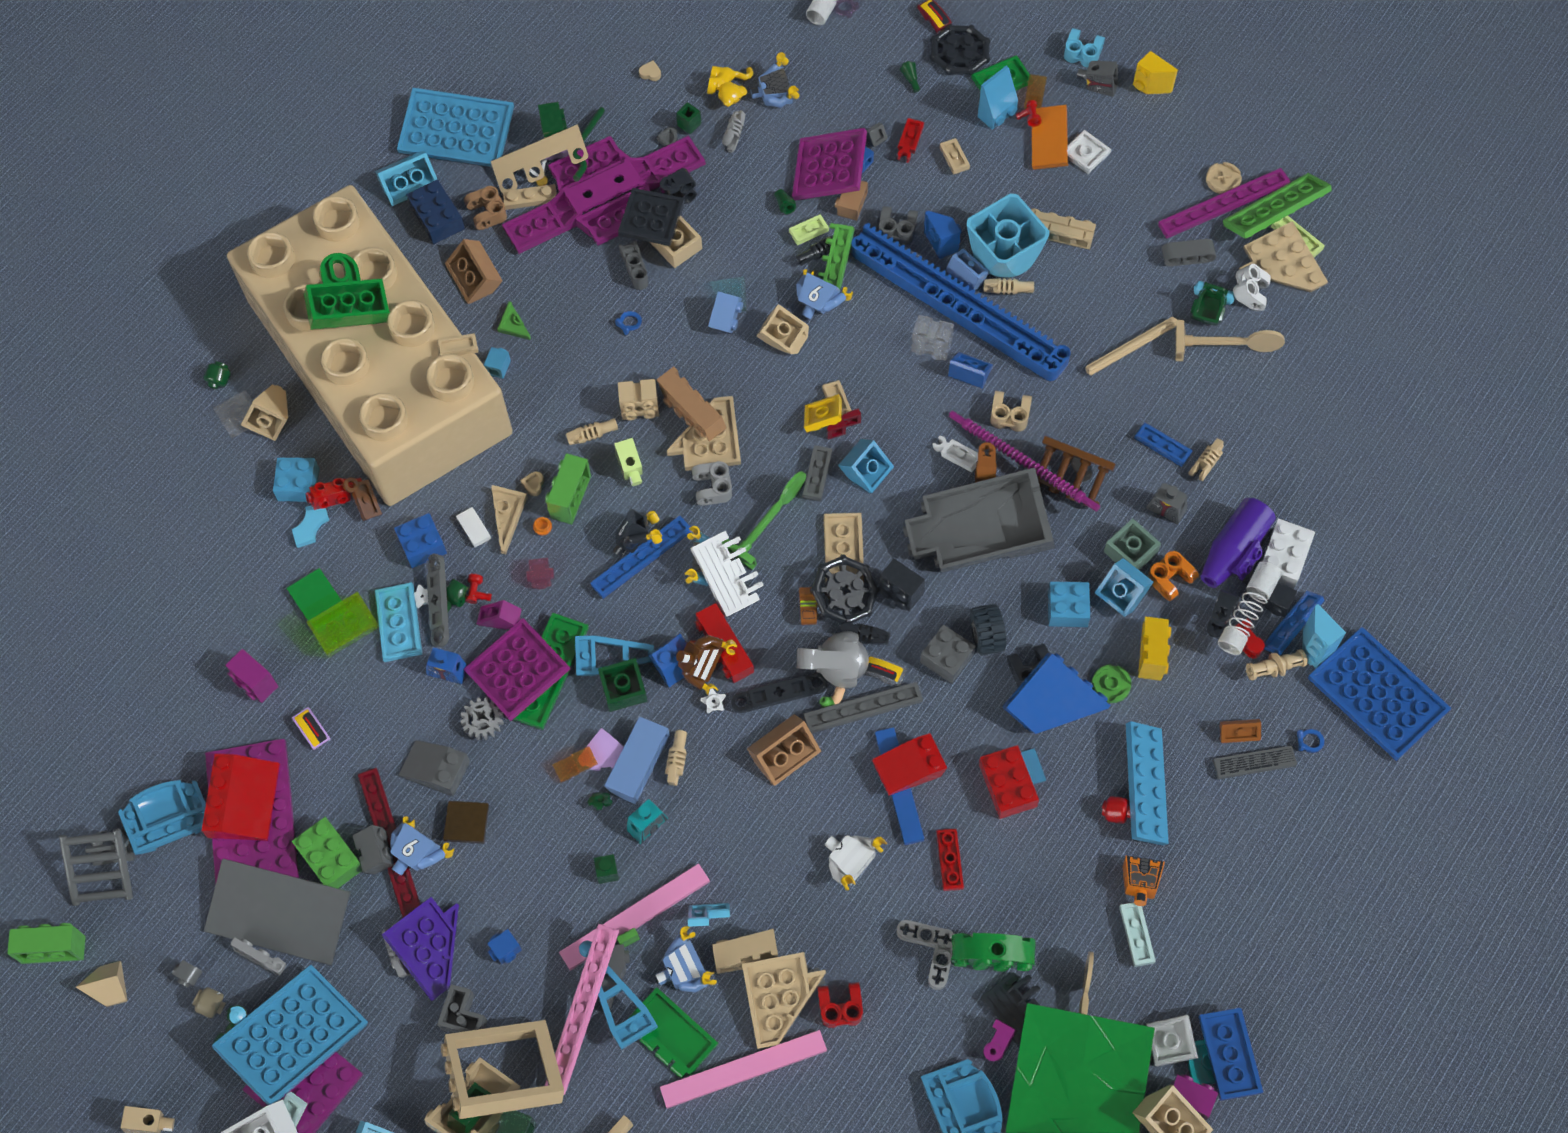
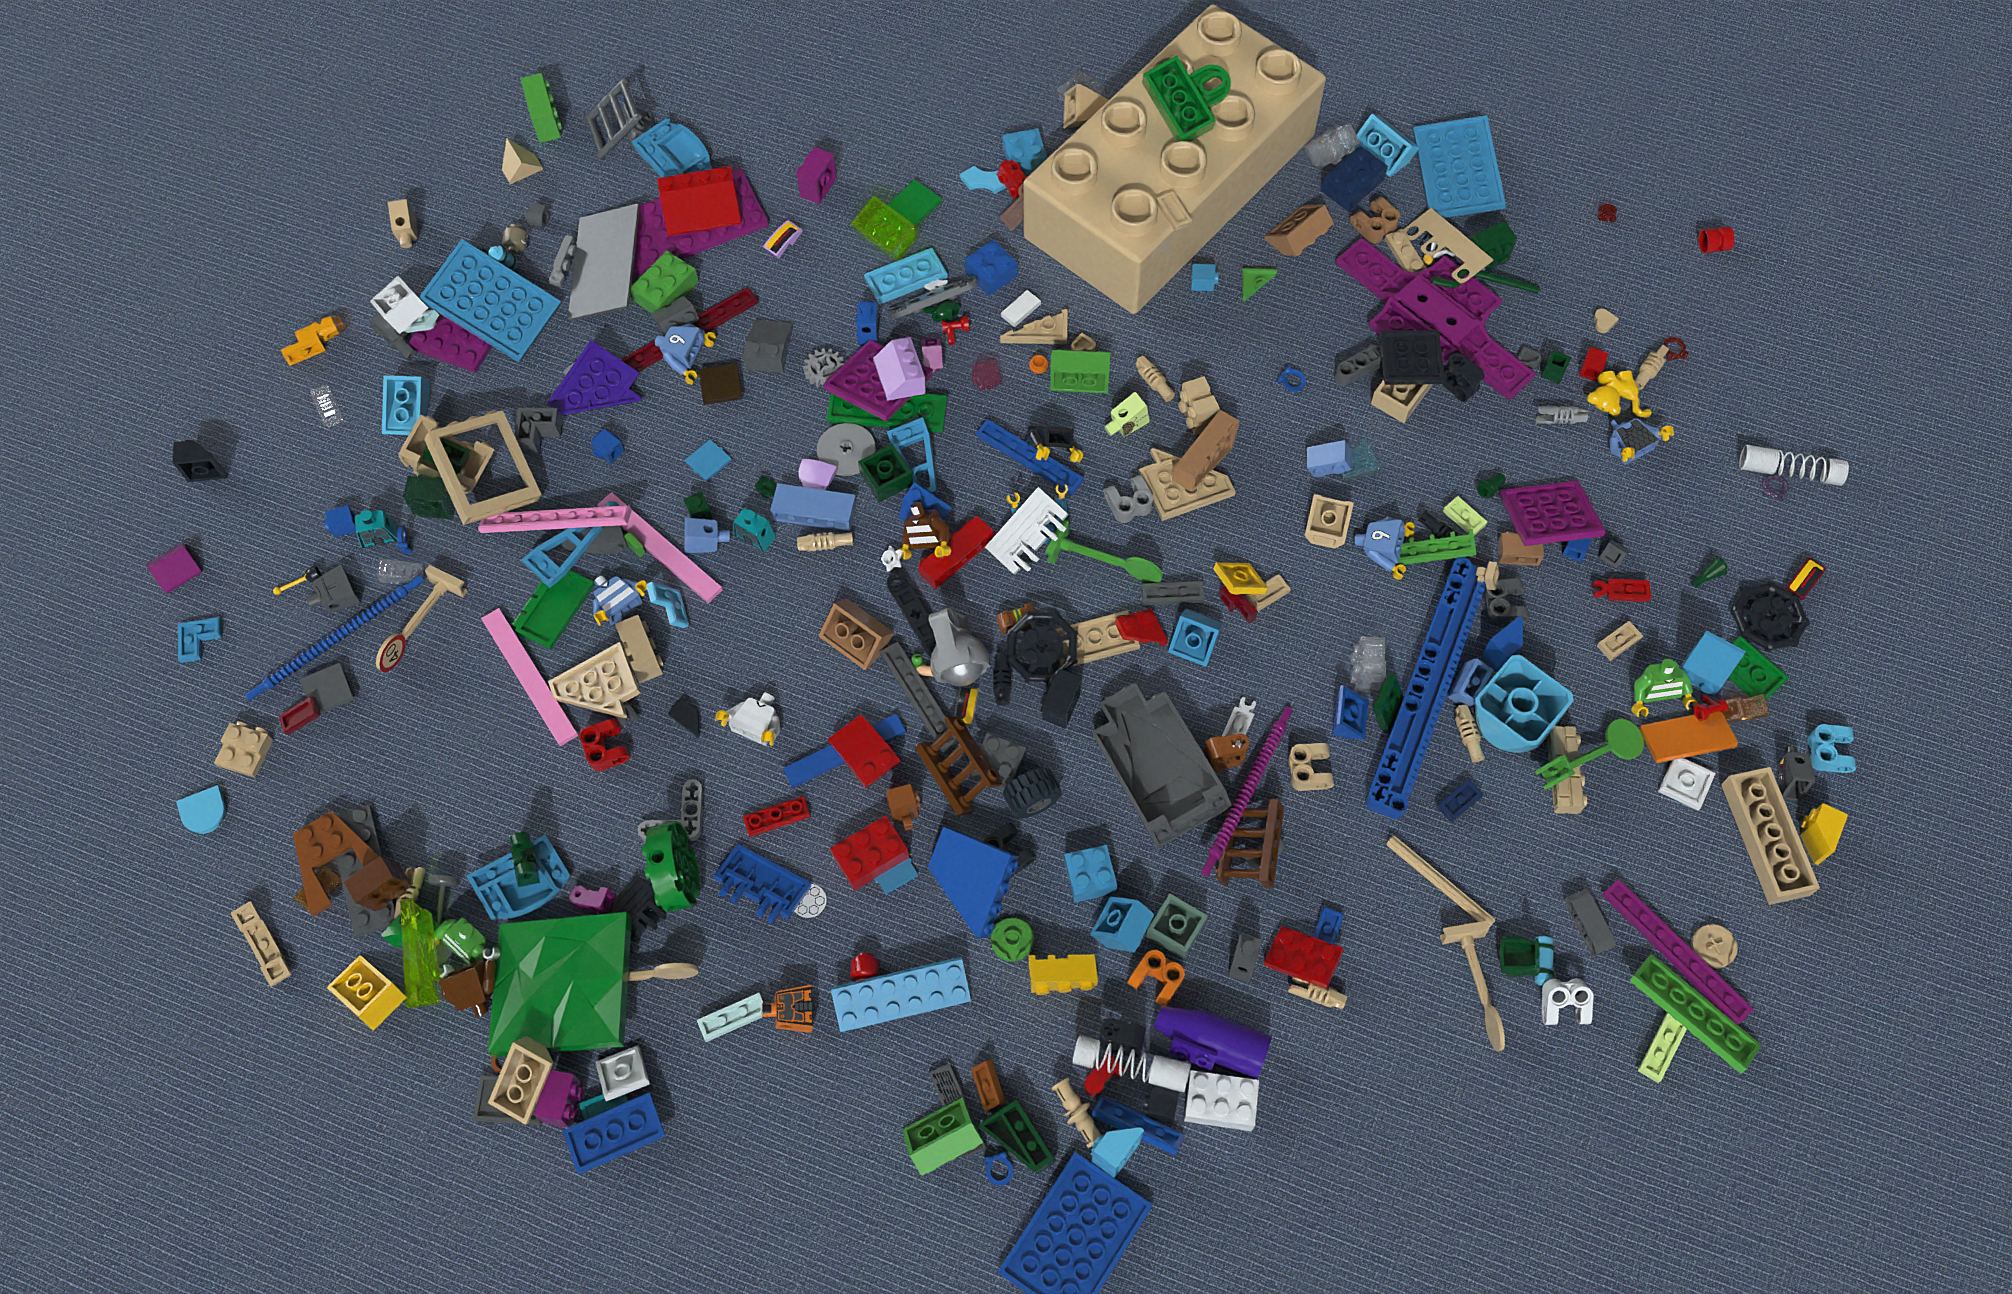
camera: 75 degrees right, 0 degrees up
(217, 375) = (1113, 61): dark green head -> none
(397, 215) = (1332, 145): none -> clear brick
(518, 642) = (900, 370): none -> lavender slope
(543, 30) = (1607, 213): none -> clear red plate
(549, 852) = (708, 460): none -> dark azure piece
(574, 705) = (844, 435): none -> light grey piece
(575, 764) = (796, 456): clear orange slope -> none
(640, 869) = (703, 535): none -> medium blue torso
(692, 91) = (1593, 364): none -> red brick
(694, 38) = (1671, 356): none -> clear red piece
(706, 51) = (1651, 366): none -> tan hinge
(828, 922) = (686, 716): none -> black tile
(845, 506) = (1141, 627): none -> red wing
(877, 224) = (1488, 575): none -> tan tile
(959, 698) = (941, 768): none -> reddish brown fence
(960, 1094) = (524, 859): none -> dark green piece
(965, 331) = (1388, 702): none -> dark green plate
(972, 741) = (903, 805): none -> dark orange brick
(1002, 140) = (1662, 683): none -> bright green torso
(1014, 879) = (759, 879): none -> blue hinge
(1037, 848) = (812, 903): none -> white sticker
(1045, 182) = (1621, 738): none -> bright green piece
(1066, 310) = (1460, 801): none -> dark blue plate
(1147, 110) = (1770, 836): none -> tan brick
(1178, 459) = (1304, 957): none -> red plate
(1278, 776) = (941, 1136): none -> bright green slope
(1286, 259) = (1622, 1036): tan wing -> none
(1288, 714) = (1020, 1136): none -> dark green wedge

